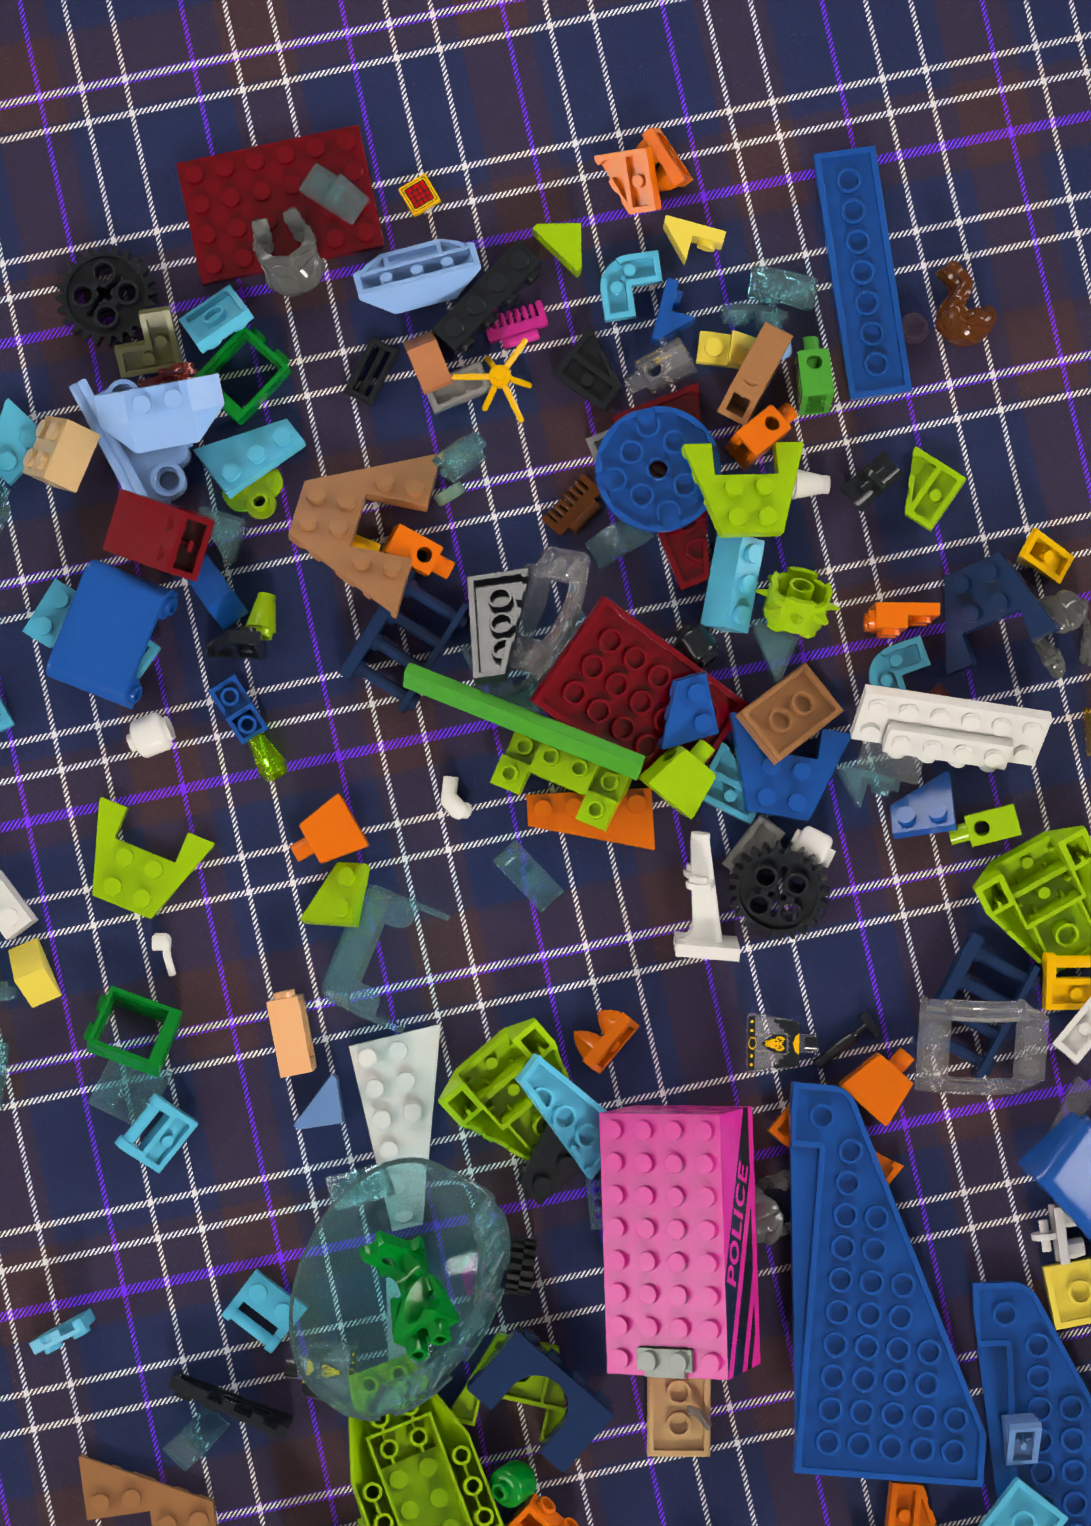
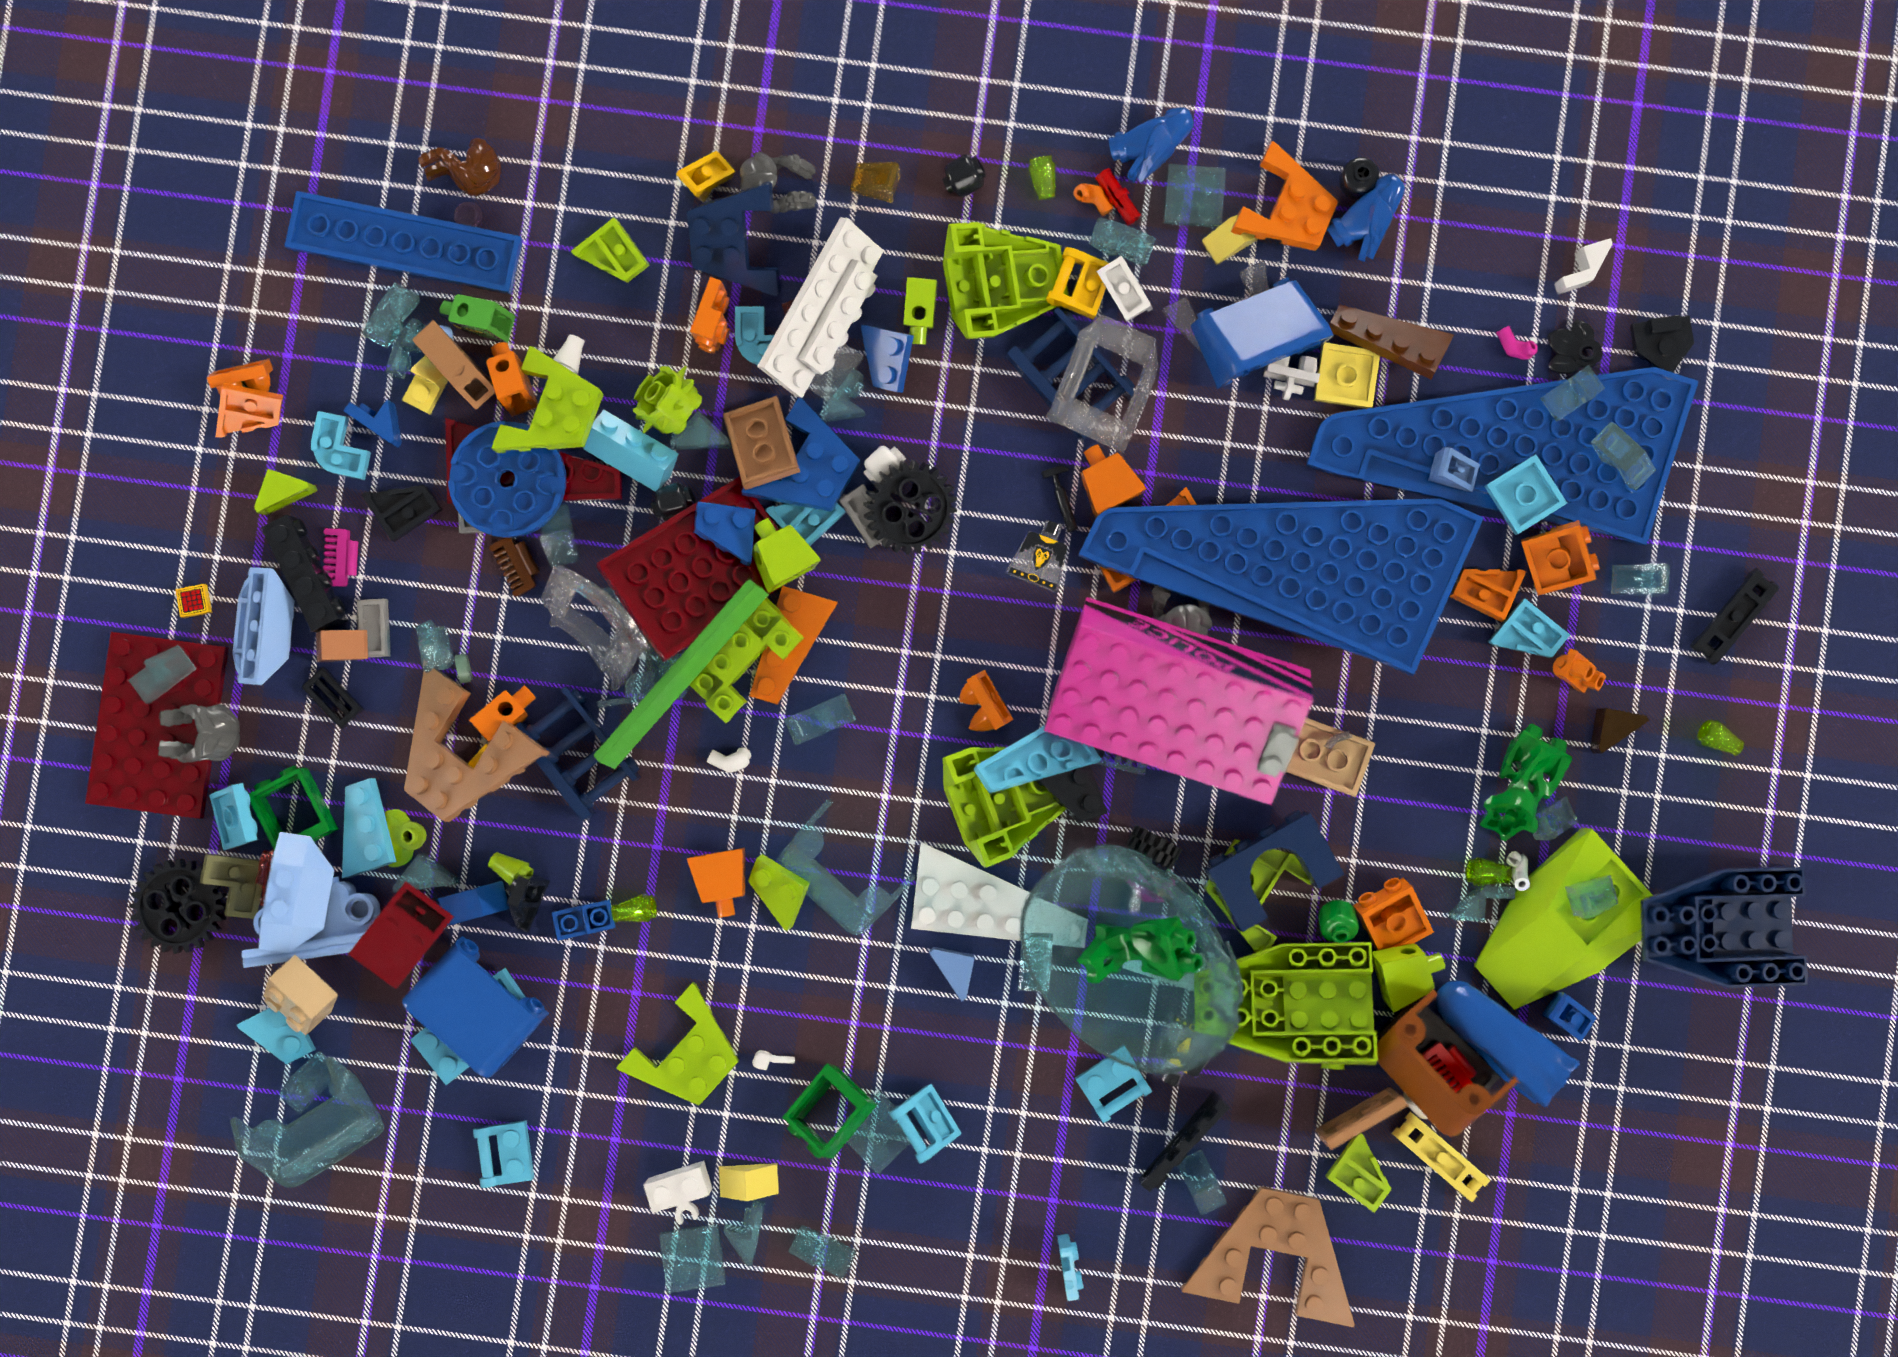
camera: 65 degrees left, 0 degrees up
(150, 735) = (577, 1004): white head -> none
(291, 1033) = (880, 974): light nougat window -> none
(495, 618) = (586, 668): wing -> none
(500, 378) = (376, 587): yellow plant -> none
(675, 366) = (420, 432): clear torso -> none
(684, 232) = (311, 382): light yellow slope -> none
(704, 937) = (923, 583): white piece -> none
(871, 481) = (586, 299): black hips -> none

